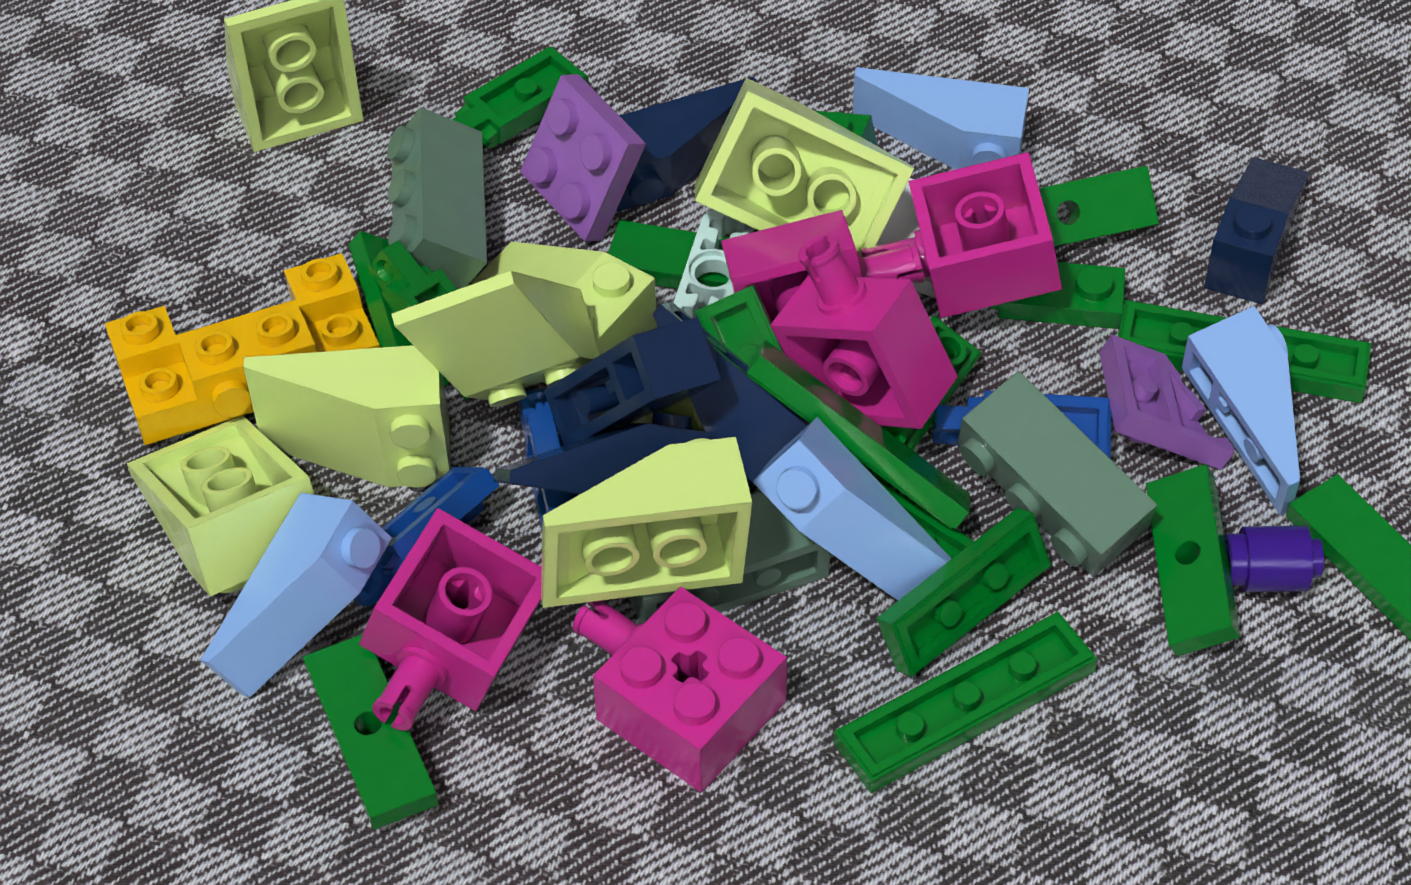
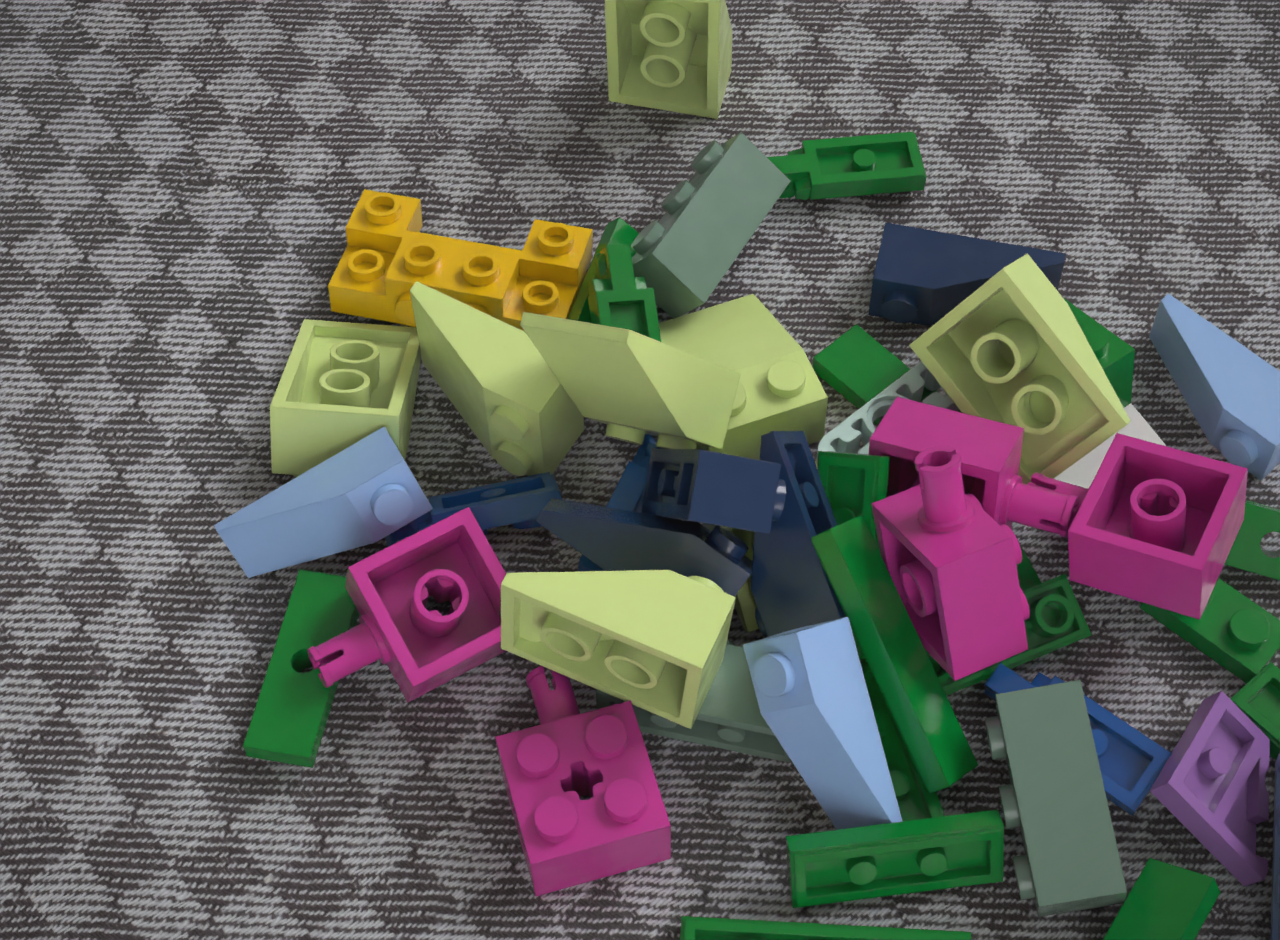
camera: 35 degrees right, 5 degrees up
(582, 157) = (855, 249): medium lavender plate -> none

